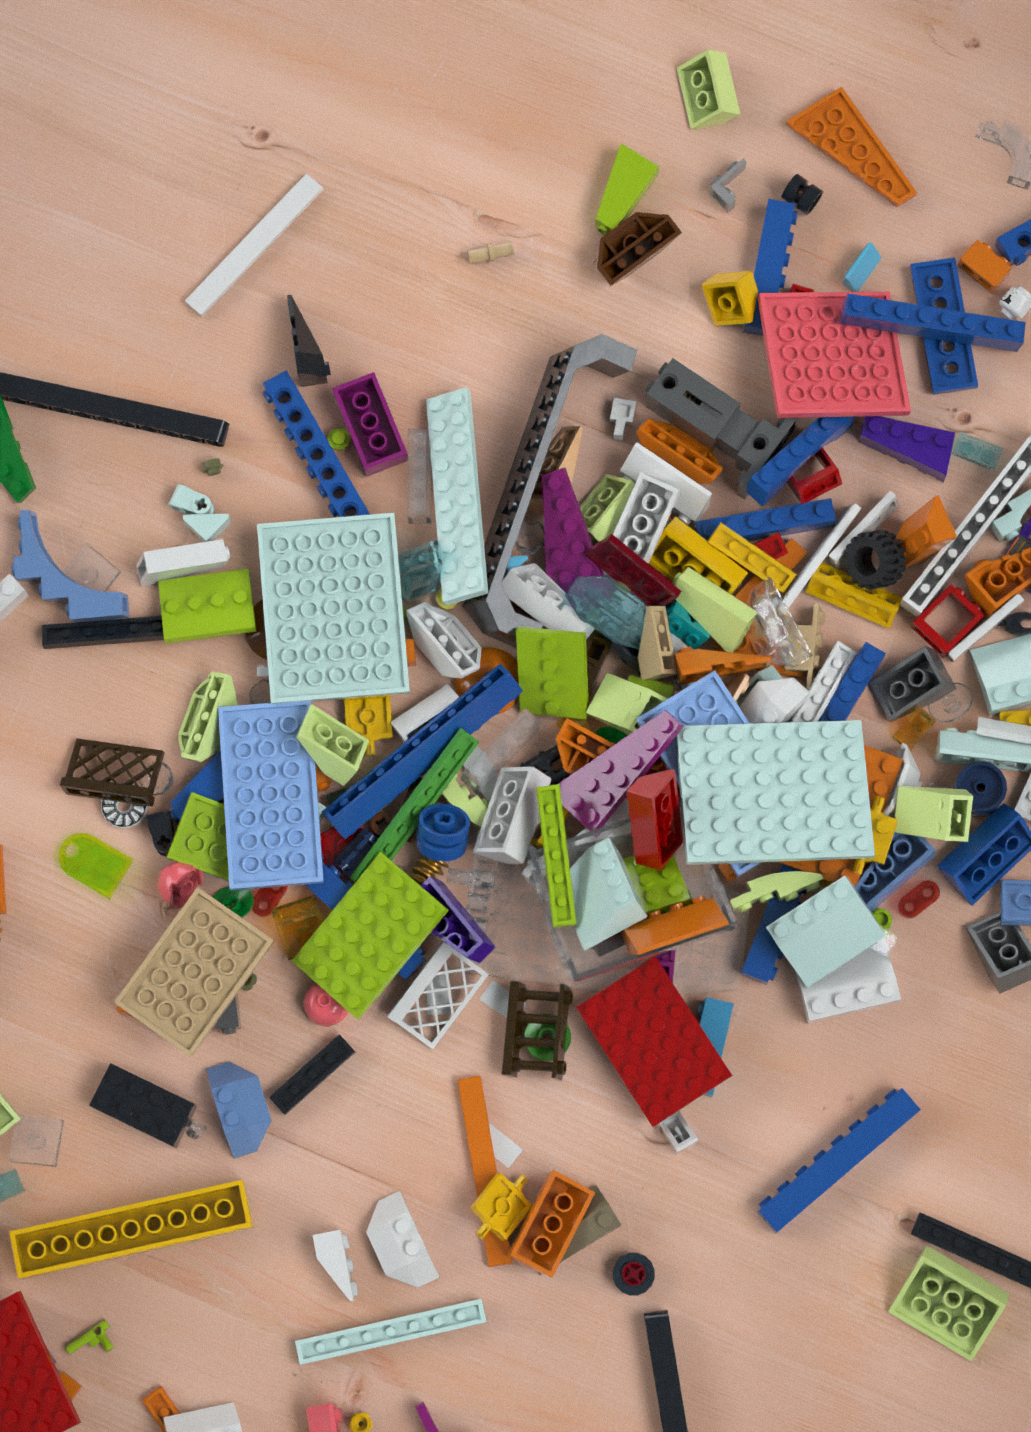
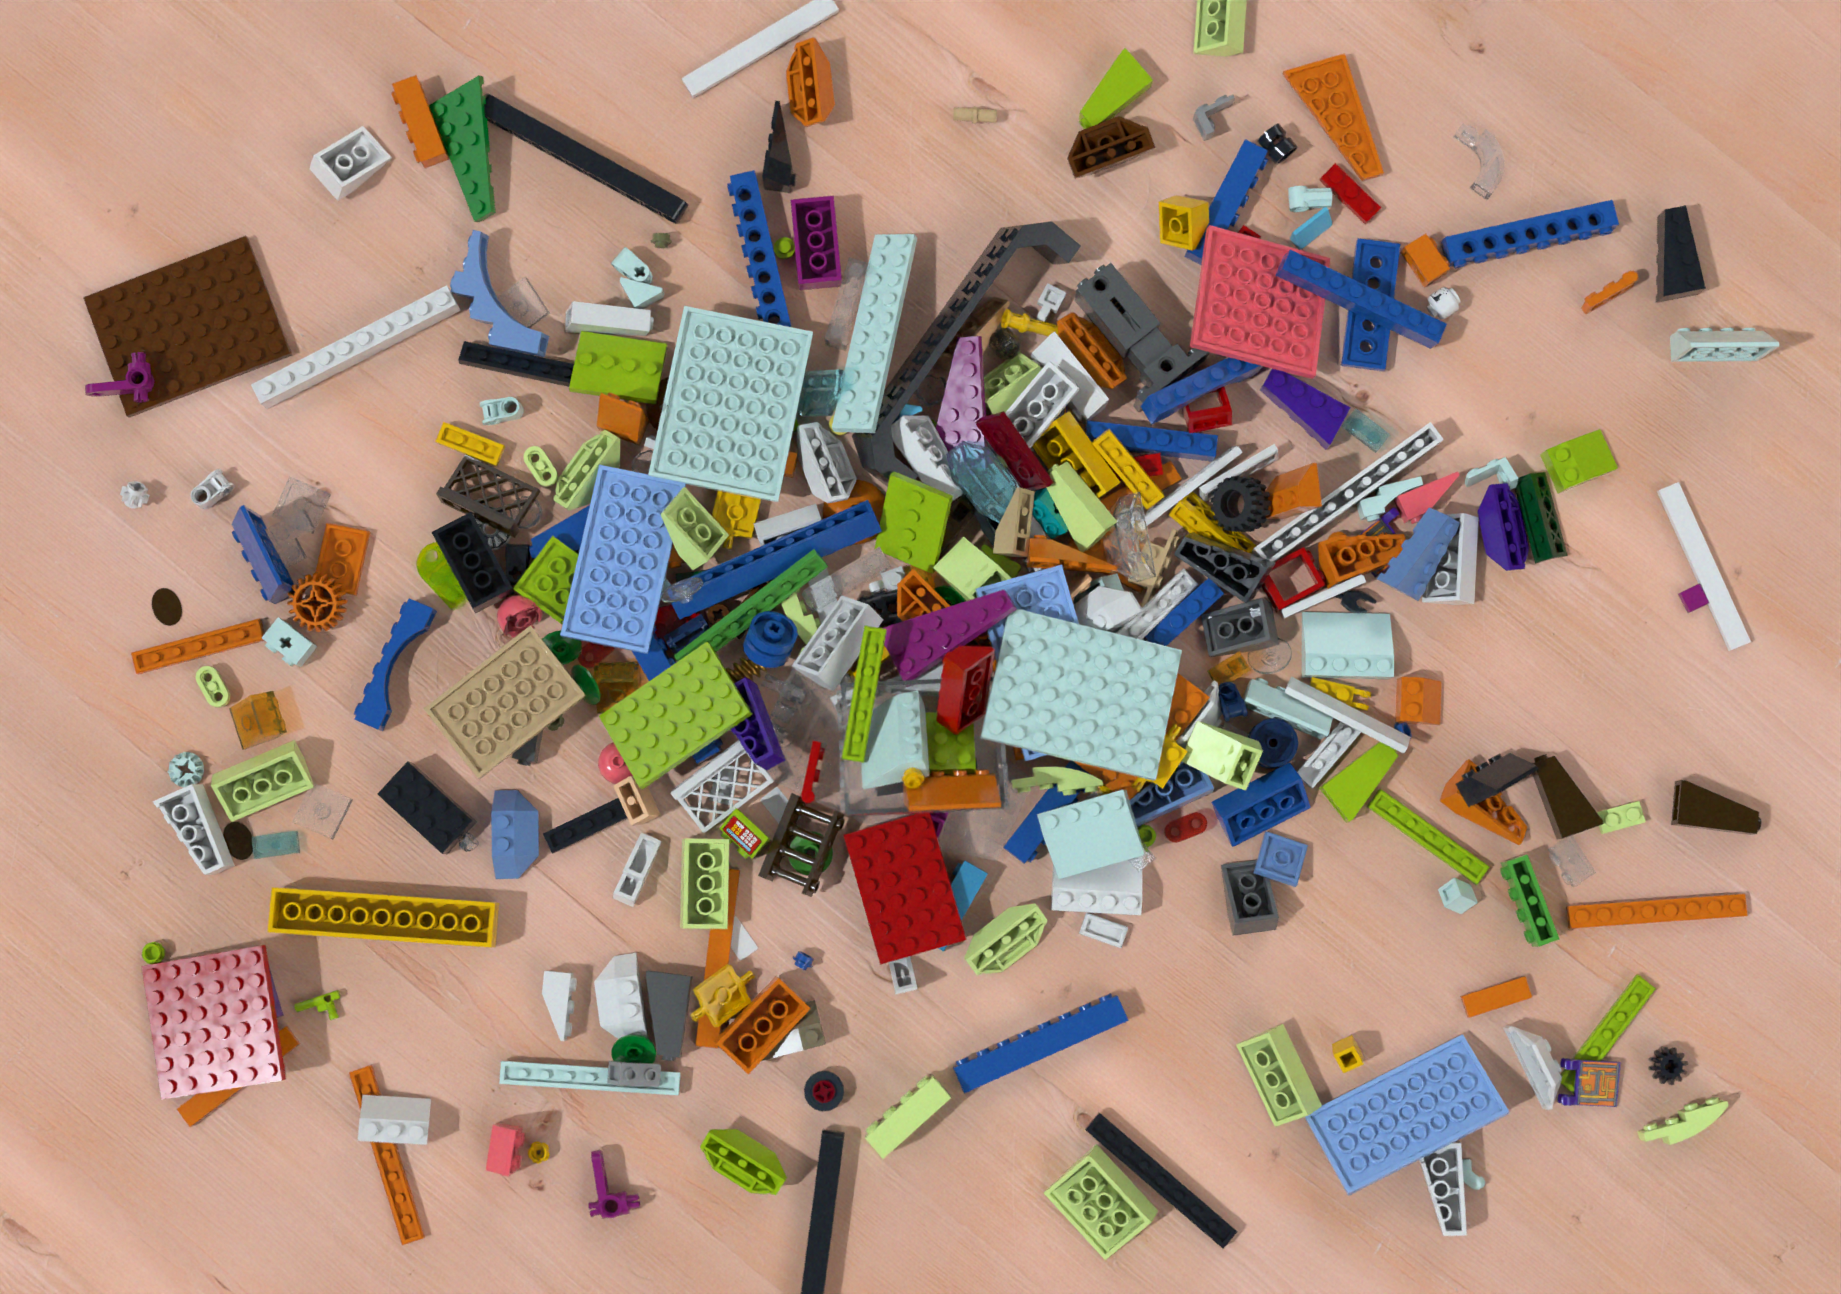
camera: 10 degrees right, 5 degrees up
(74, 923) = (375, 707): none -> blue arch
(78, 726) = (470, 444): none -> yellow plate
(98, 684) = (496, 410): none -> light aqua piece
(118, 843) = (473, 562): none -> black brick
(158, 728) = (540, 467): none -> yellowish green plate
(226, 654) = (621, 418): none -> orange slope
(272, 930) = (586, 683): none -> green dish
(316, 268) = (810, 83): none -> orange wedge
(341, 807) = (682, 590): none -> clear dish
(355, 1035) = (636, 801): none -> light nougat brick
(375, 1106) = (636, 869): none -> white slope
(433, 1298) = (634, 1050): none -> green dish
(435, 1312) = (634, 1074): none -> light grey bracket
(449, 1098) = (704, 883): none -> yellowish green slope
(450, 1234) = (669, 1008): none -> dark grey slope
(475, 1036) = (744, 834): none -> slope
(526, 954) = (812, 773): none -> red plate
(545, 740) = (889, 580): none -> white plate
(572, 1148) = (803, 960): none -> blue plate
(573, 1369) = (743, 1161): none -> lime wedge
(590, 469) = (1005, 343): none -> clear smoke head
(604, 443) = (1025, 323): none -> yellow pin
(631, 922) = (913, 777): none -> yellow plate
(727, 1272) = (907, 1116): none -> yellowish green brick
(772, 1064) = (1005, 939): none -> yellowish green wedge
(845, 240) = (1303, 199): none -> light aqua piece
(867, 1027) = (1103, 930): none -> white tile
(881, 625) = (1225, 565): none -> black wedge
(889, 222) = (1350, 193): none -> red plate
(926, 758) = (1231, 701): none -> dark blue piece

